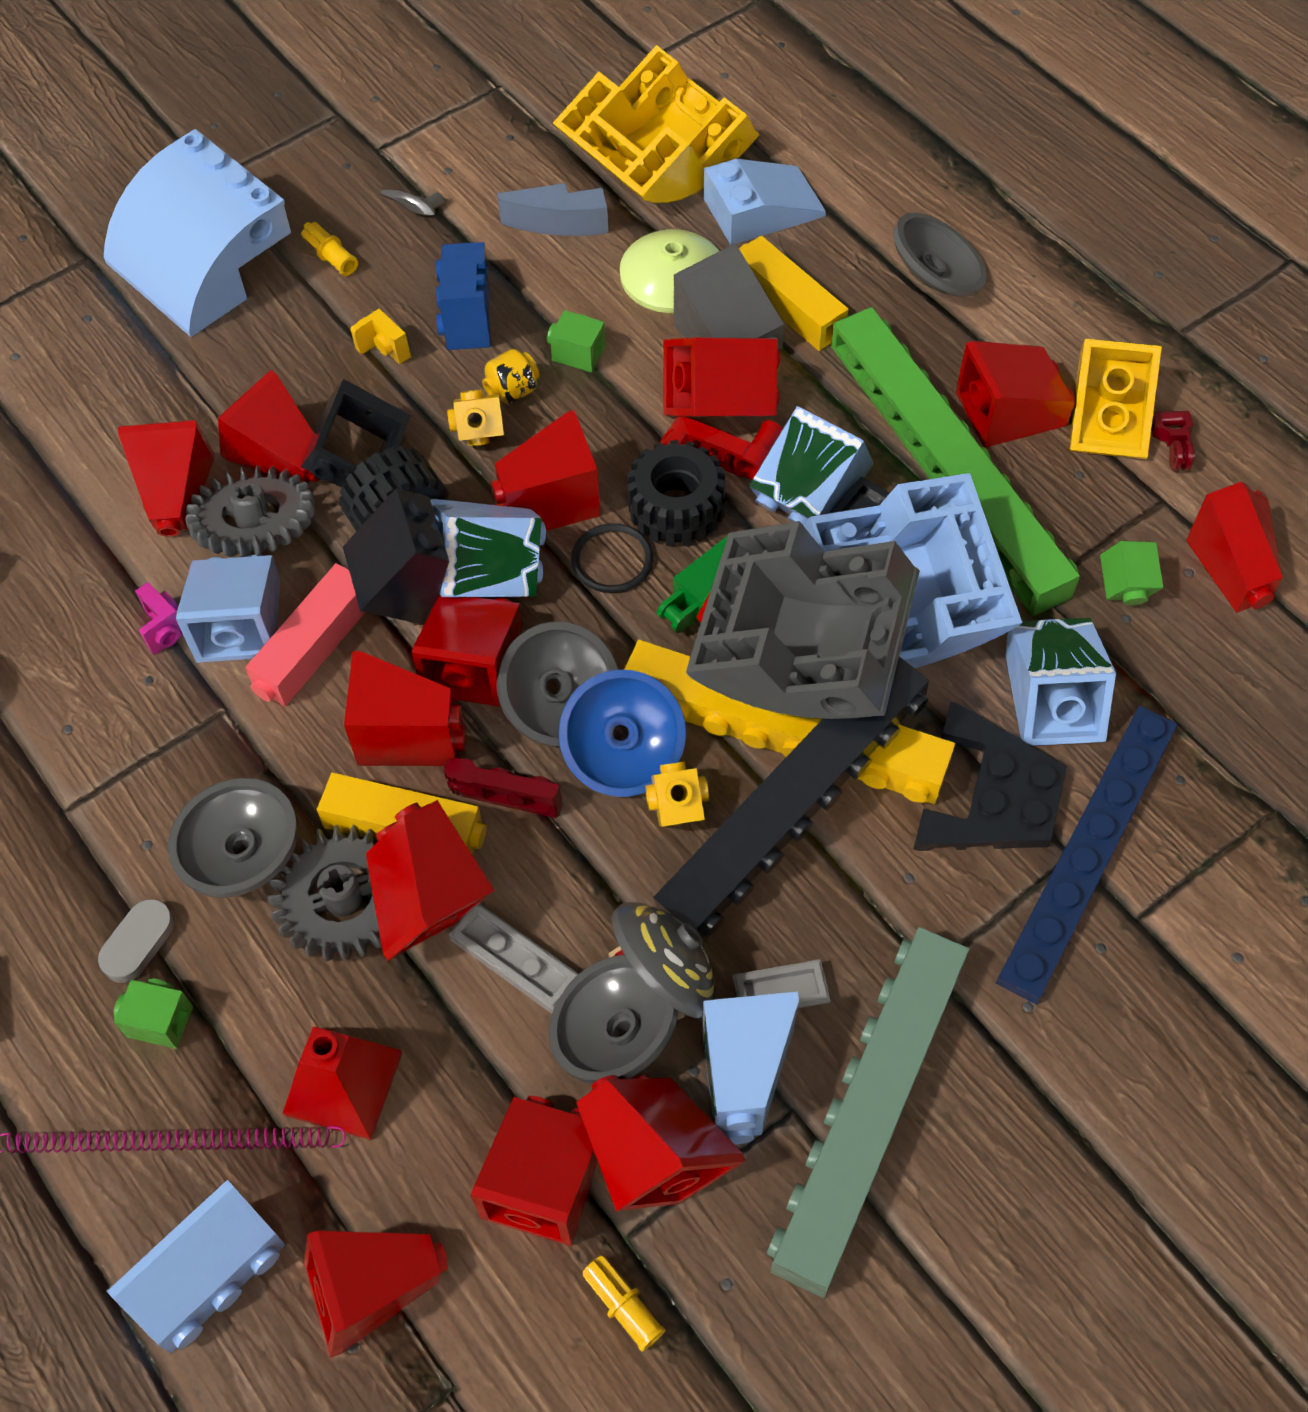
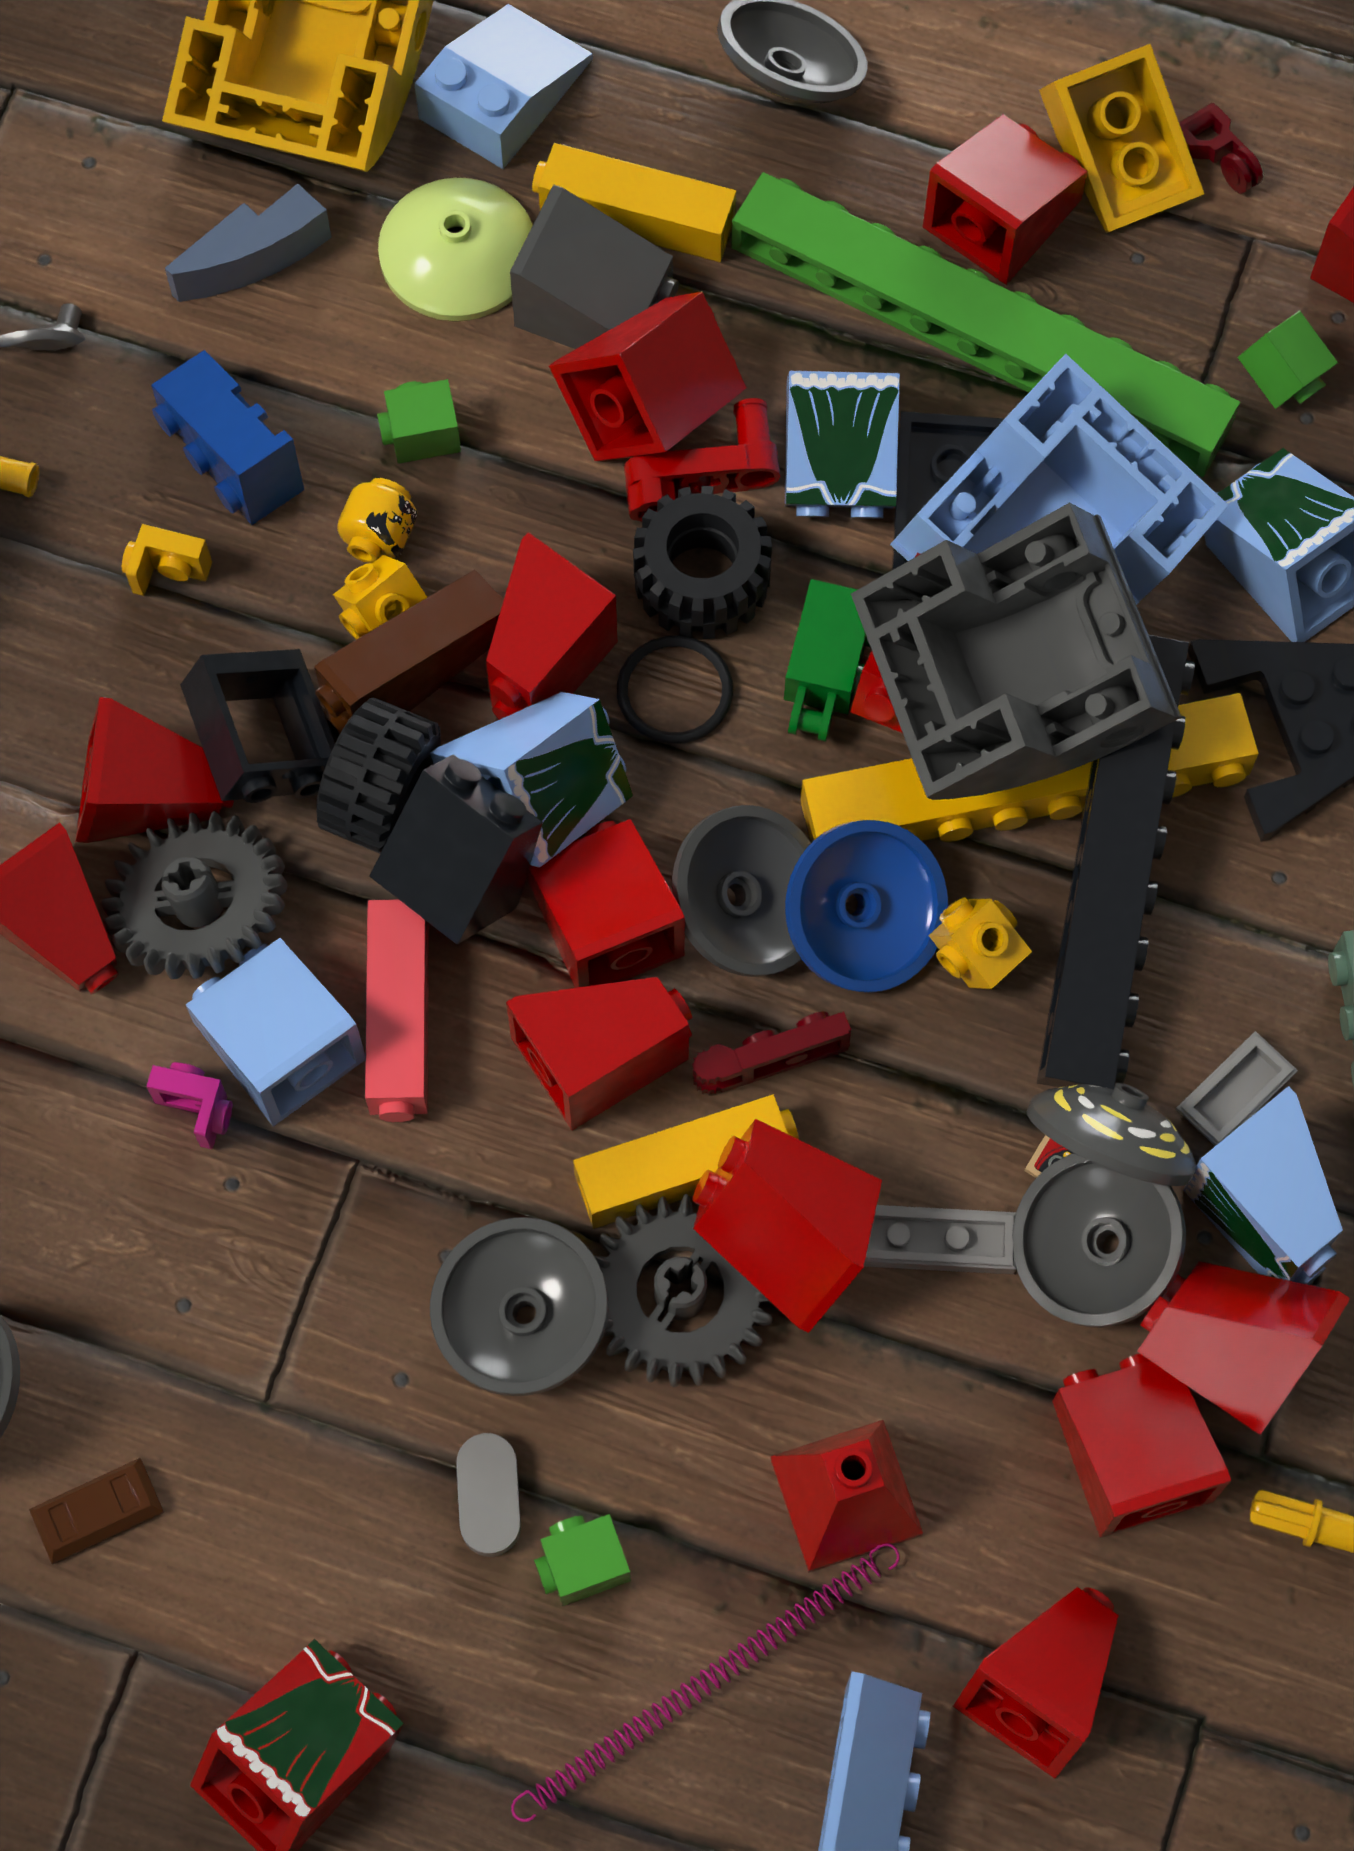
camera: 35 degrees left, 10 degrees up
(461, 449) = (411, 652): none -> reddish brown slope

